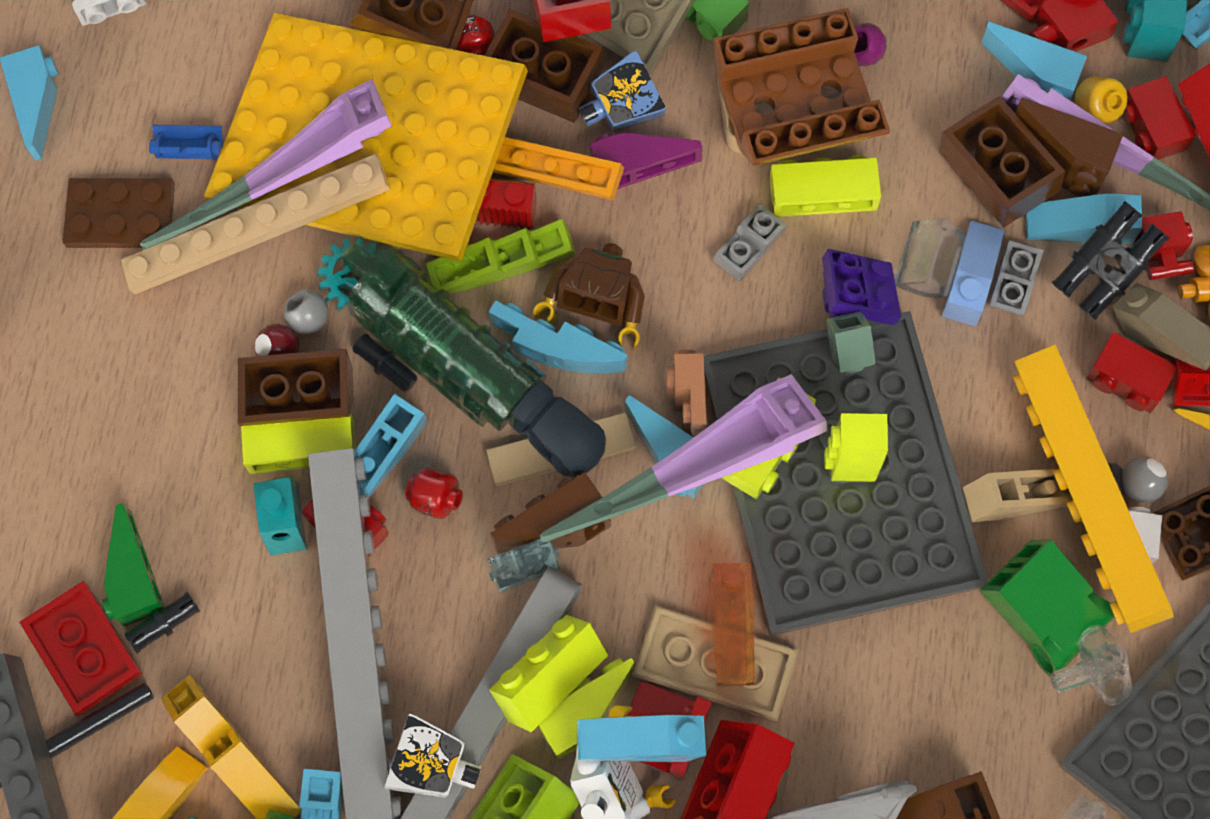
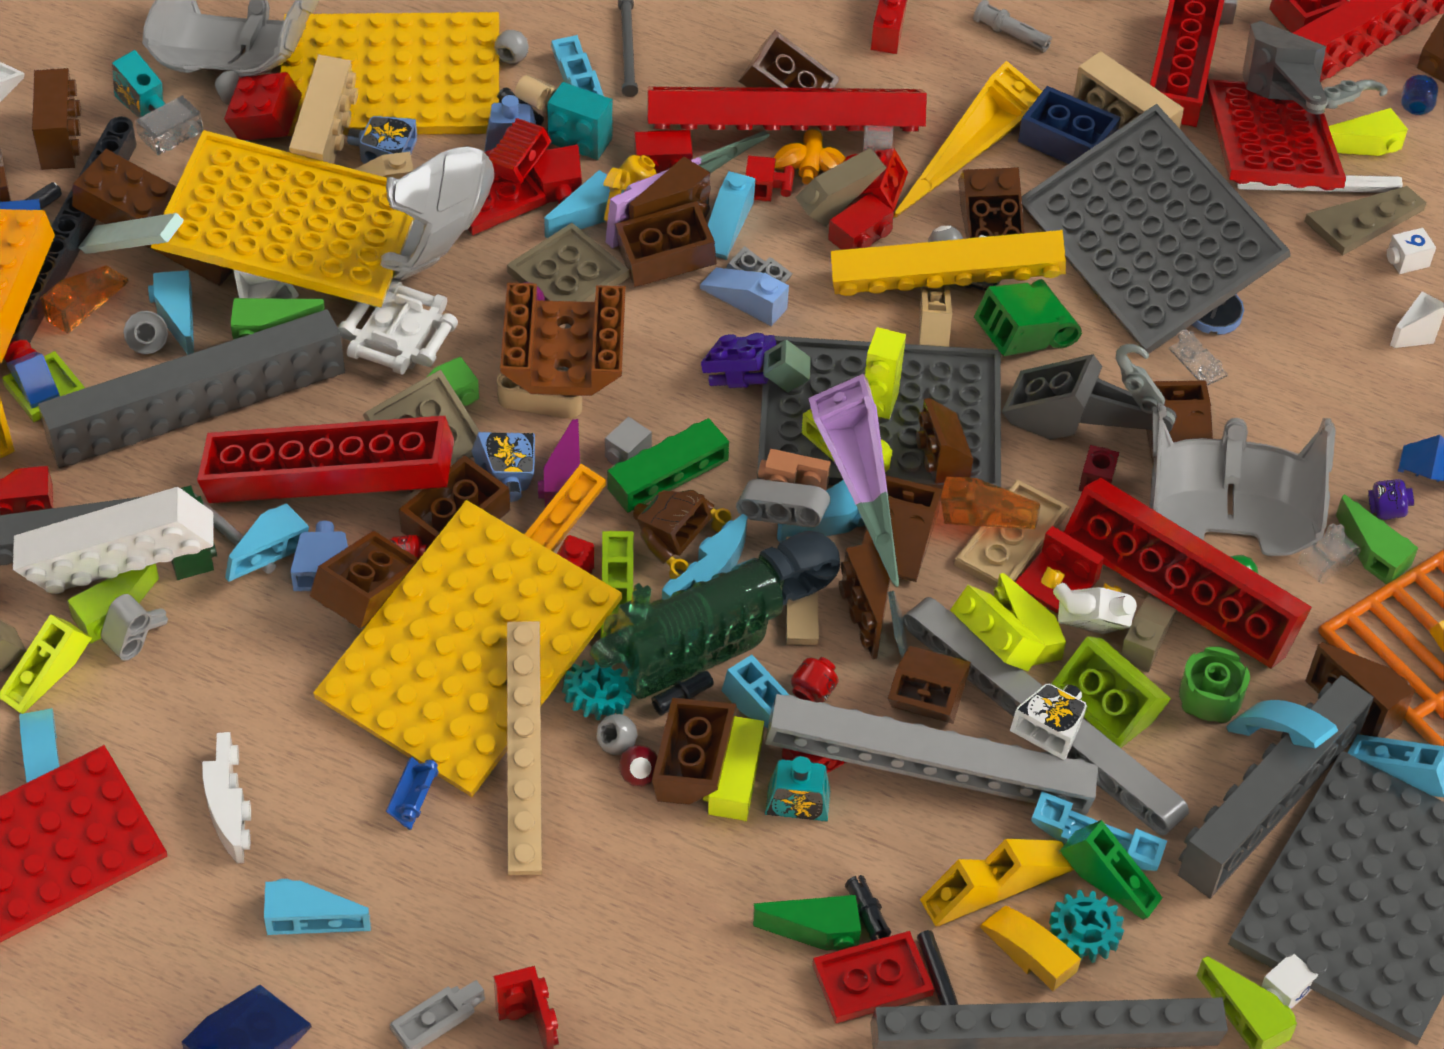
camera: 80 degrees left, 20 degrees down
(116, 211) = (457, 867): reddish brown plate -> none
(325, 139) = (473, 656): lavender plate -> none
(455, 615) = (929, 684): none -> reddish brown slope
(642, 738) = (1079, 556): medium azure slope -> none
(645, 391) = (783, 503): none -> light grey beam
(671, 534) = (913, 517): none -> reddish brown slope
(678, 258) = (668, 464): none -> green brick
(696, 210) = (627, 441): none -> light grey brick
(749, 243) = (662, 416): light grey slope -> none
(796, 546) = (943, 442): none -> reddish brown slope
(824, 743) = (1099, 464): none -> dark red brick
(825, 186) = (642, 354): neon yellow brick -> none
(925, 668) = (1063, 394): none -> dark grey slope
(930, 258) = (723, 313): clear brick -> none
(931, 73) = (568, 266): none -> dark tan plate
(1056, 77) = (617, 181): none -> yellow bar
(1101, 666) = (1084, 299): clear beam -> none
(1107, 241) = (773, 204): black pin -> none

